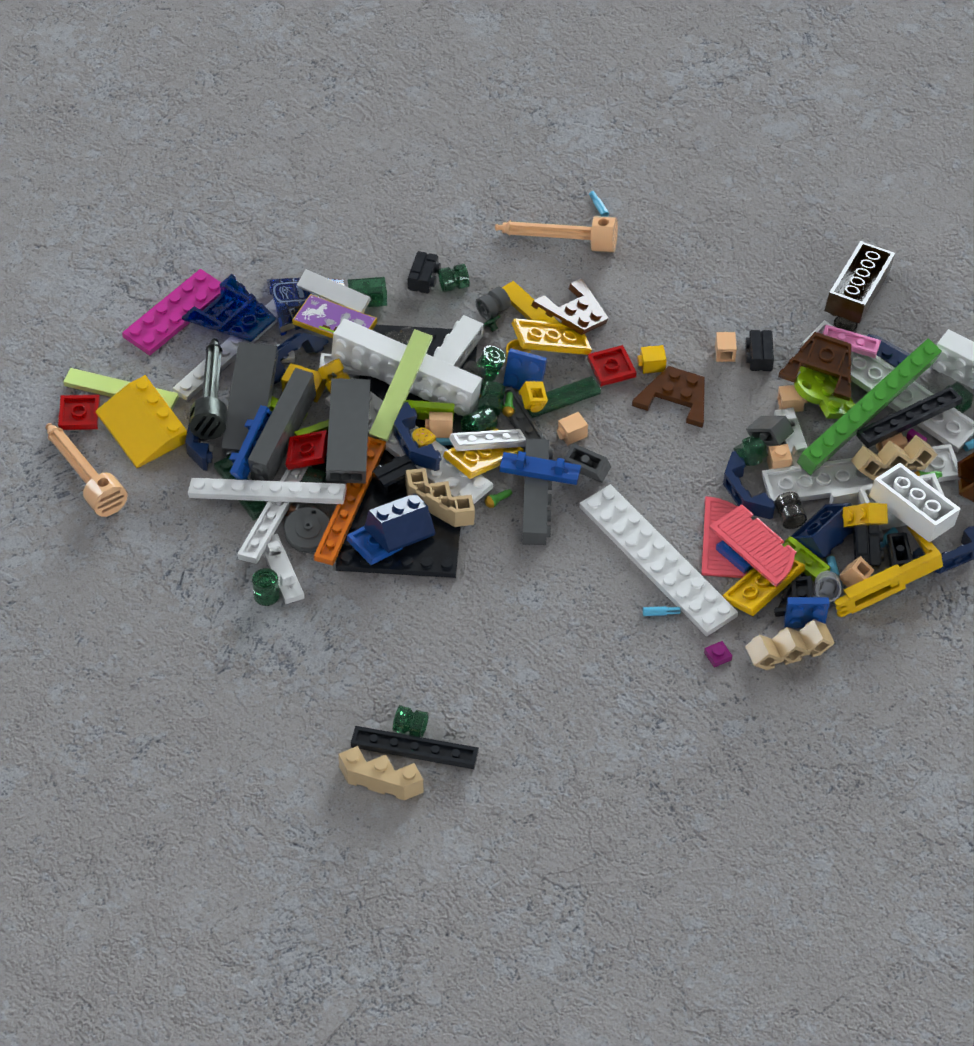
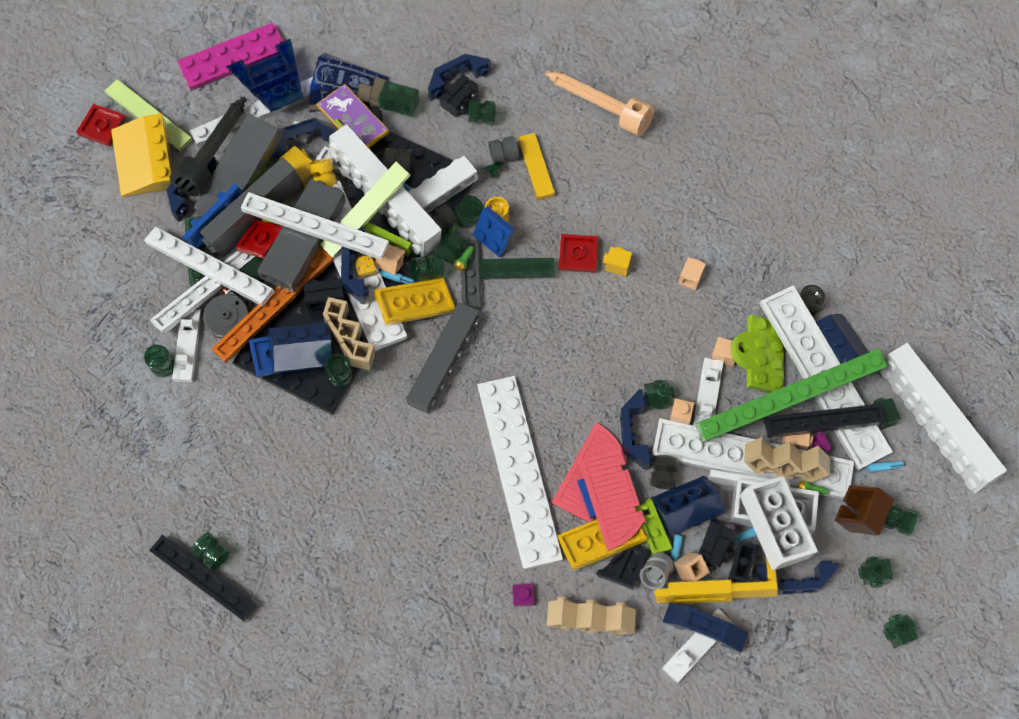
camera: 25 degrees right, 15 degrees up
(101, 490) = (73, 212): light nougat piece -> none
(333, 291) = (365, 89): white tile -> none
(361, 413) = (315, 226): none -> white plate
(380, 775) = (157, 594): tan brick -> none
(423, 241) = (478, 66): none -> dark blue slope
(447, 530) = (338, 370): none -> clear green wheel
(488, 440) = (424, 289): white tile -> none
(492, 500) = (401, 349): bright green piece -> none
(533, 395) = (491, 257): yellow brick -> none
(540, 468) = (454, 338): blue hinge -> none
(550, 337) = (535, 205): yellow tile -> none
(572, 428) = (508, 305): light nougat brick -> none
(580, 314) = (574, 190): wing -> none
(592, 464) = (502, 347): dark grey brick -> none
(599, 204) = (651, 83): medium azure pin -> none
(660, 611) = (497, 528): medium azure pin -> none
(677, 387) = (628, 298): reddish brown wing -> none
(760, 350) = (722, 290): black brick -> none
(771, 429) = (686, 380): dark grey brick -> none
(805, 609) = (617, 589): blue plate -> none
(825, 356) = (774, 325): reddish brown wing -> none
(859, 282) = (847, 257): dark brown brick -> none
(859, 343) = (806, 318): bright pink tile -> none
(865, 514) = (725, 514): yellow brick -> none
(891, 609) = (706, 625): none -> dark blue slope
(893, 636) = (690, 653): none -> white hinge

